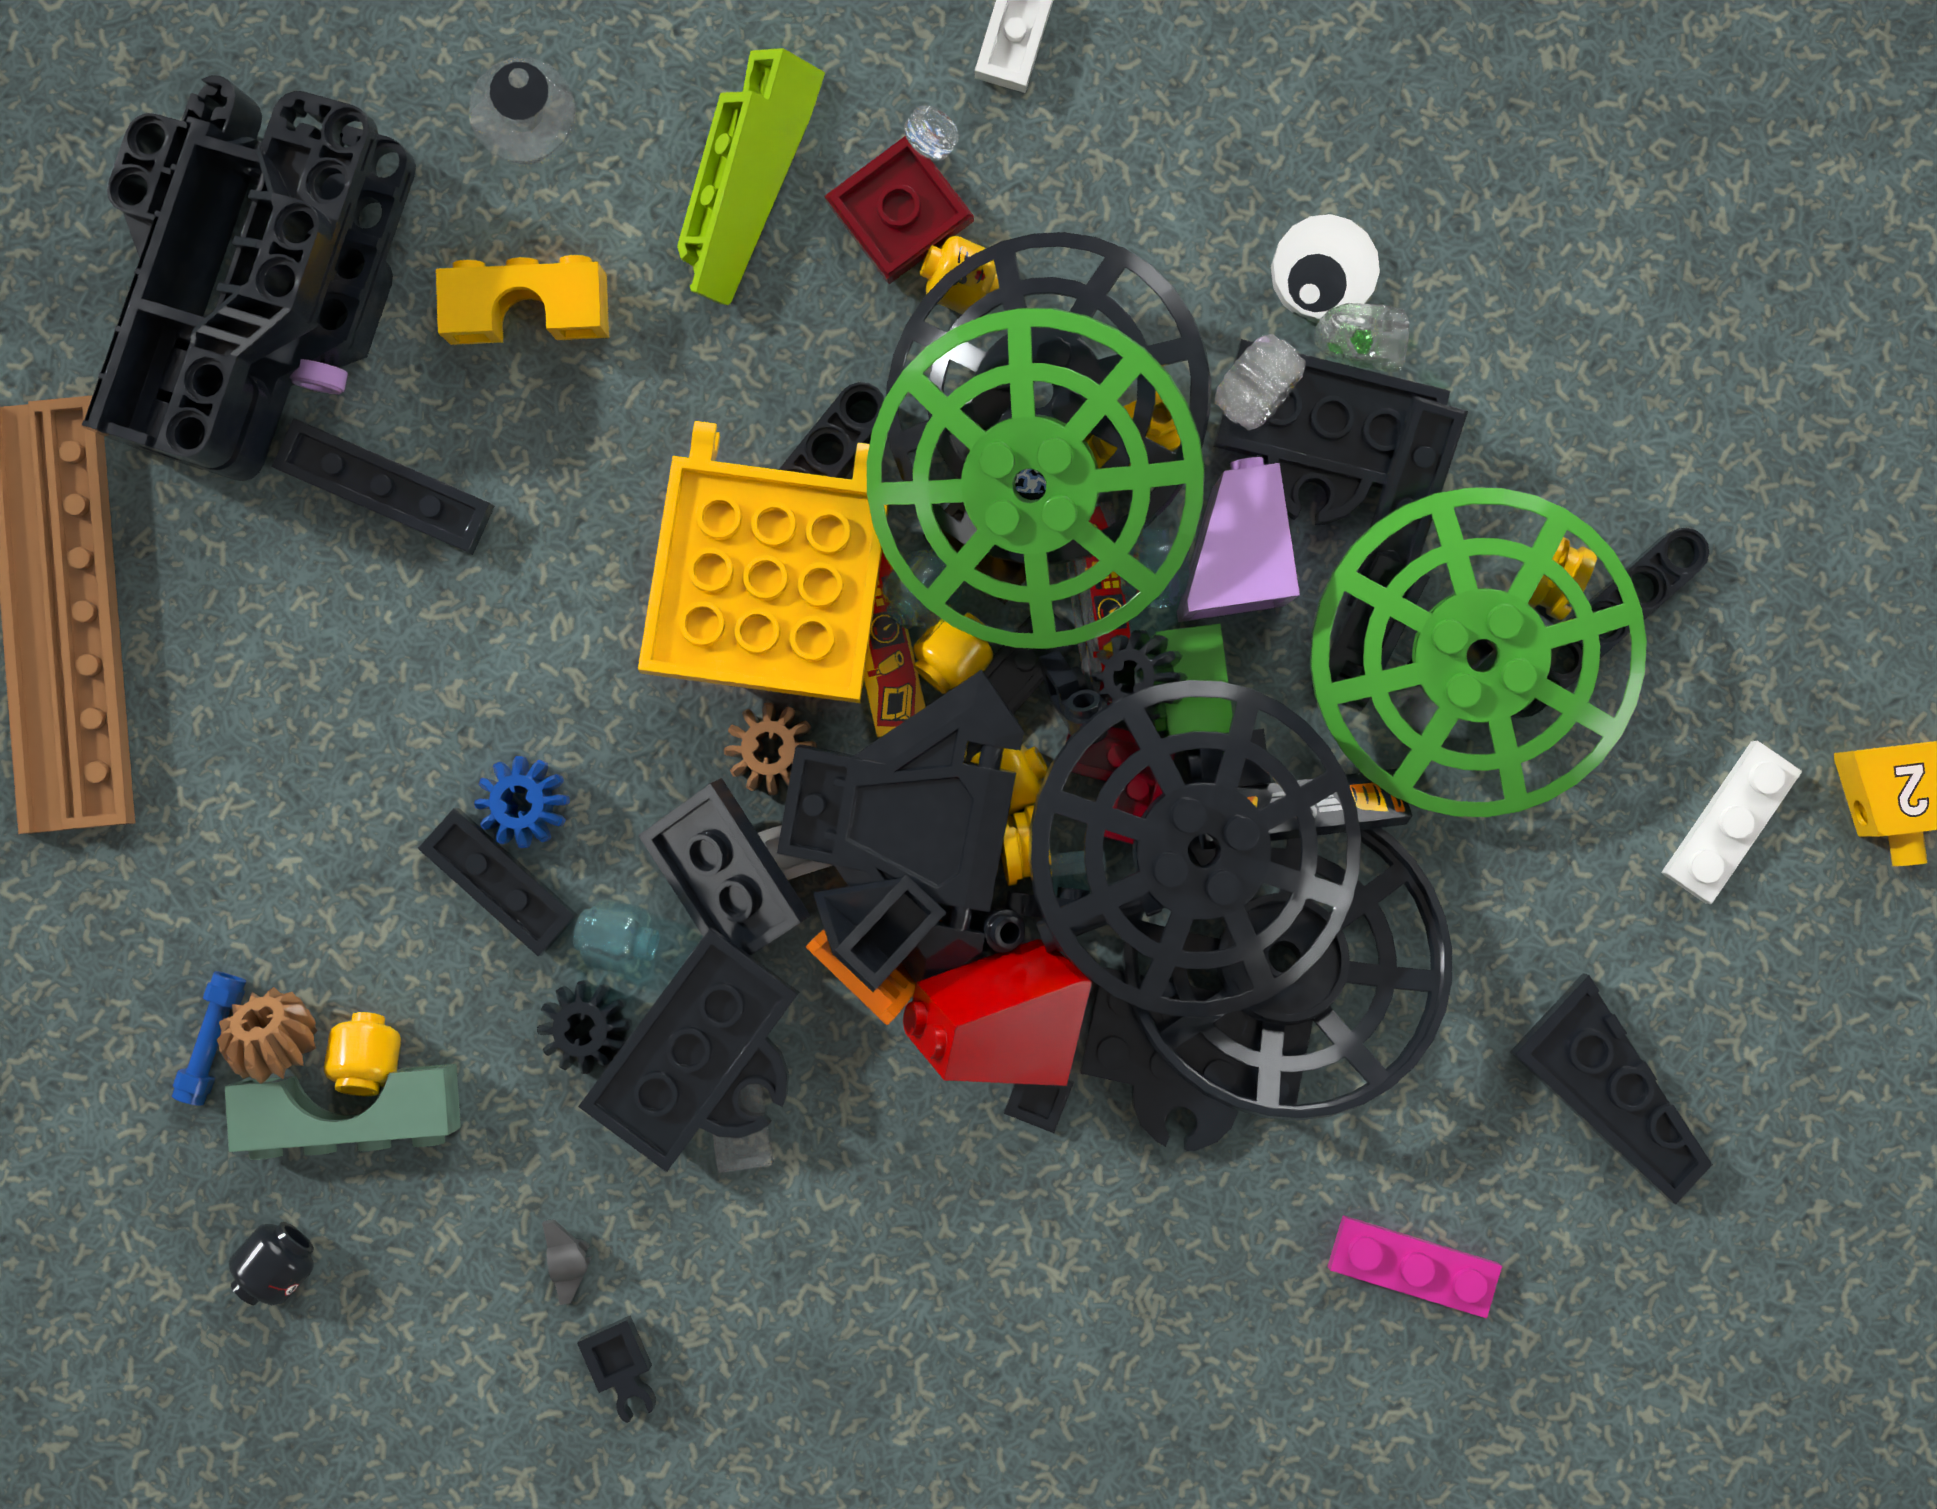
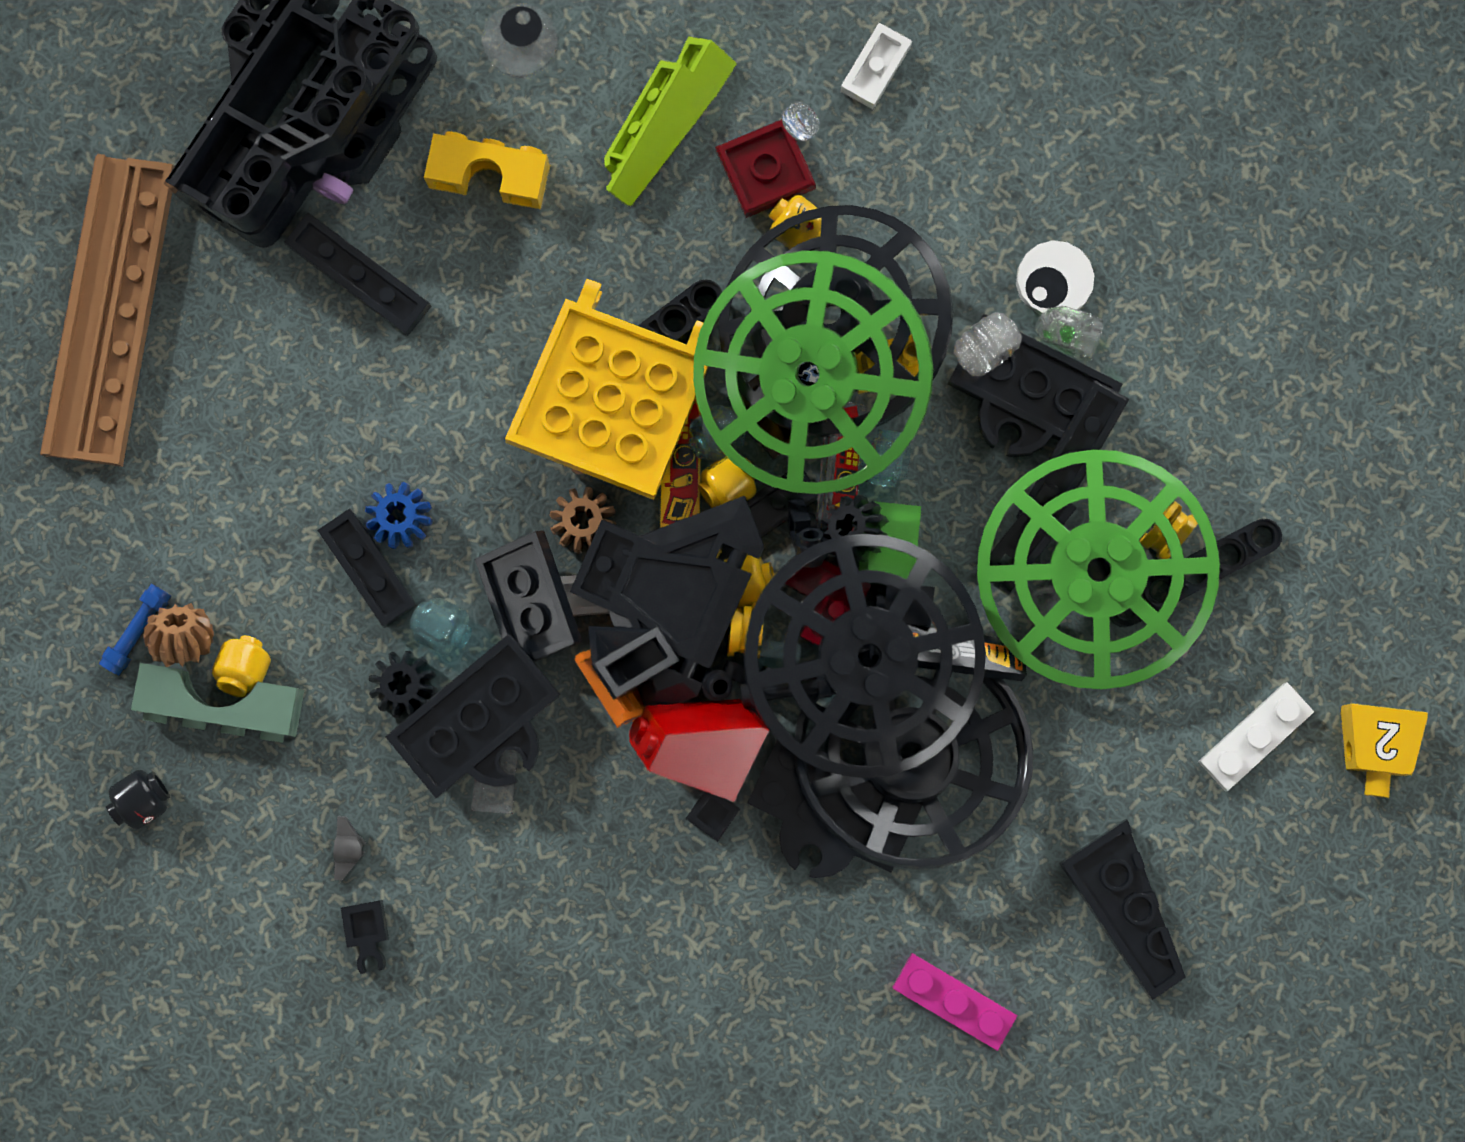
camera: 10 degrees right, 5 degrees down
(1242, 546) = (949, 458): lavender slope -> none

